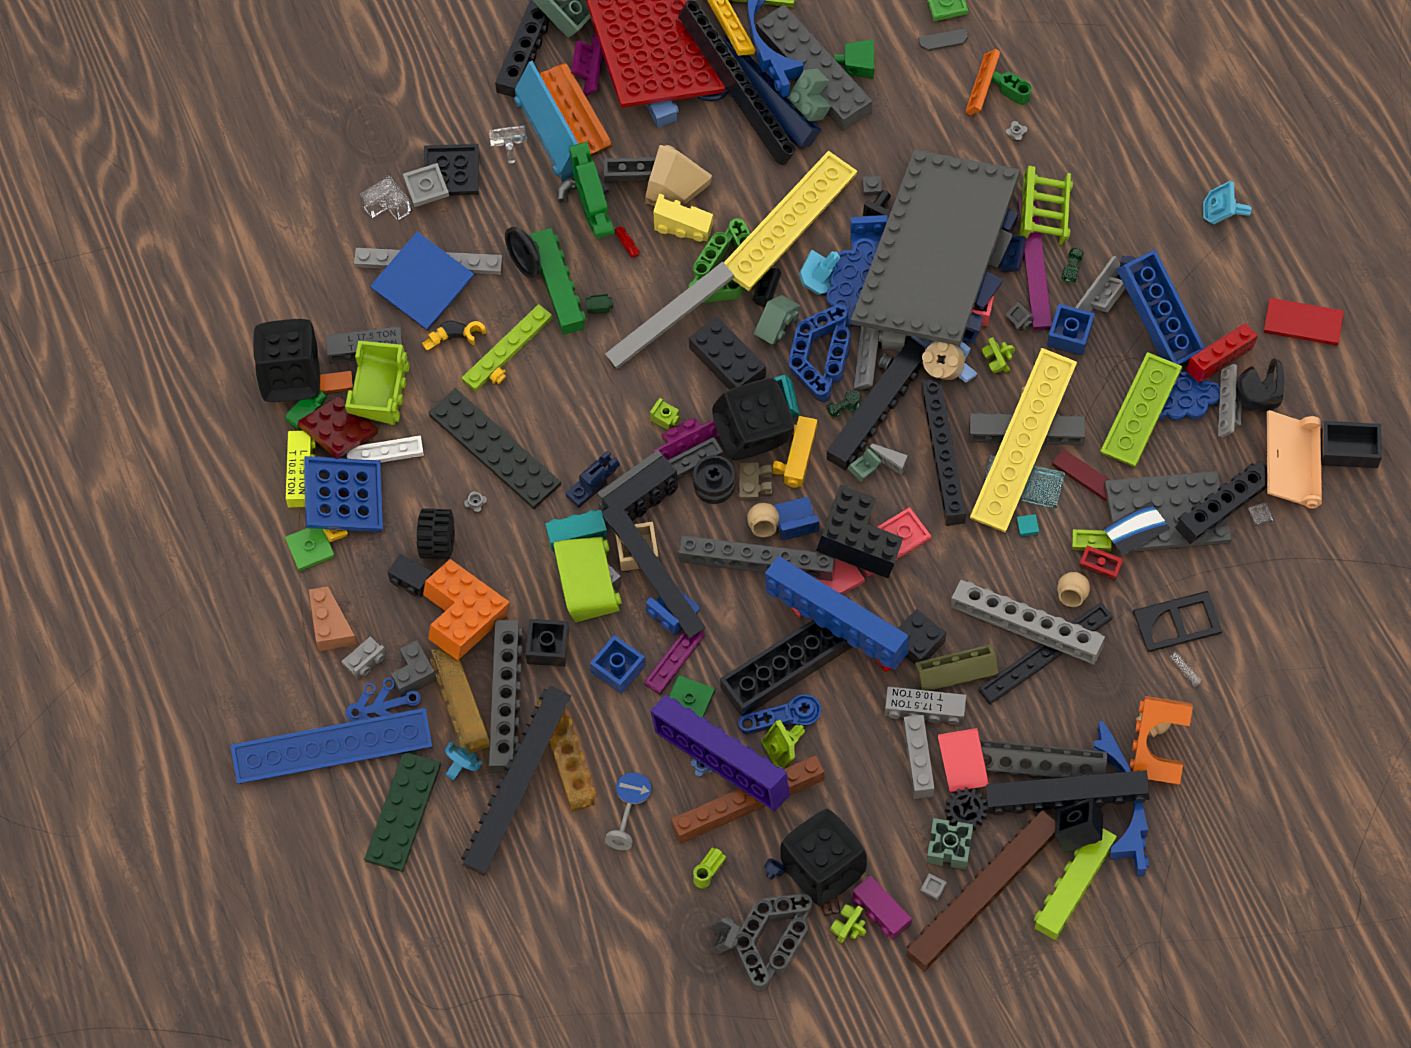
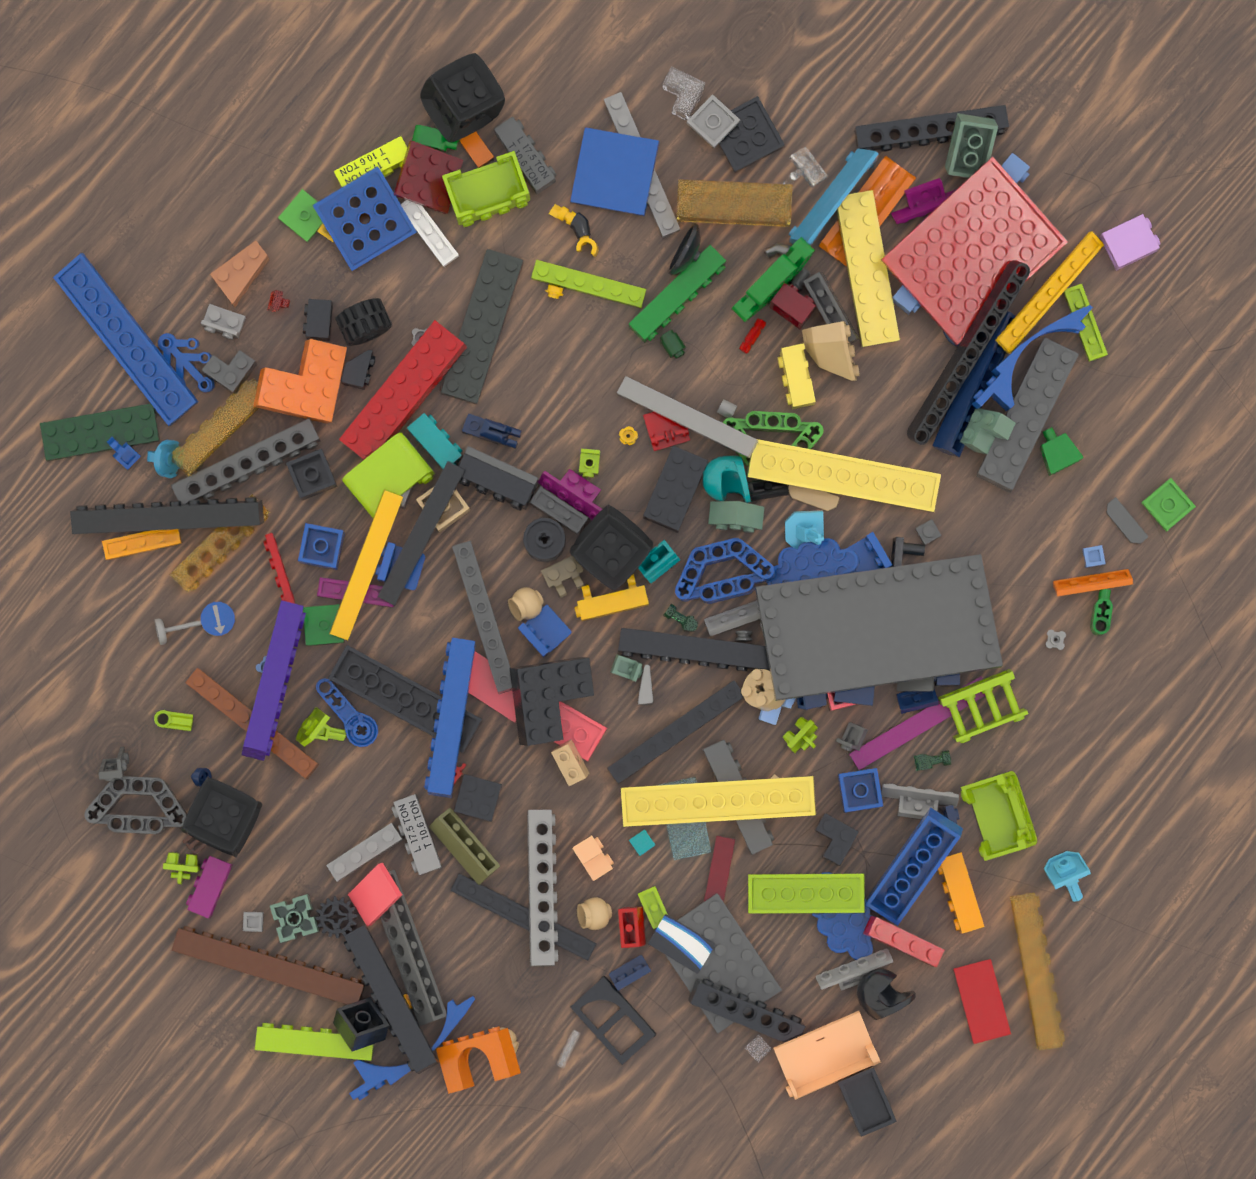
camera: 60 degrees right, 20 degrees up
(372, 602) = (276, 301): none -> clear red tile
(436, 794) = (124, 454): none -> blue plate
(475, 562) = (357, 370): none -> black slope
(504, 202) = (734, 202): none -> clear yellow brick
(517, 532) = (404, 390): none -> red brick
(526, 820) = (140, 543): none -> light orange plate
(612, 710) = (277, 563): none -> red plate
(621, 127) = (866, 271): none -> light yellow plate
(622, 194) = (792, 305): none -> dark red brick
(656, 630) = (366, 565): none -> yellow tile
(658, 370) = (633, 435): none -> yellow plate
(670, 344) = (664, 431): none -> red hinge
(678, 287) = (727, 409): none -> light grey hose
(738, 313) = (726, 476): none -> teal piece
(793, 257) = (814, 497): none -> tan piece
(925, 546) = (570, 762): none -> tan brick
(960, 72) = (1093, 556): none -> medium blue plate
(1020, 568) = (592, 857): none -> light nougat brick
(1103, 364) = (841, 838): none -> black brick
(1140, 233) = (1000, 815): none -> lime windscreen
(1142, 584) = (629, 972): none -> dark blue bracket
(1206, 294) = (961, 894): none -> light orange brick
(1297, 267) = (1036, 971): none -> clear yellow brick

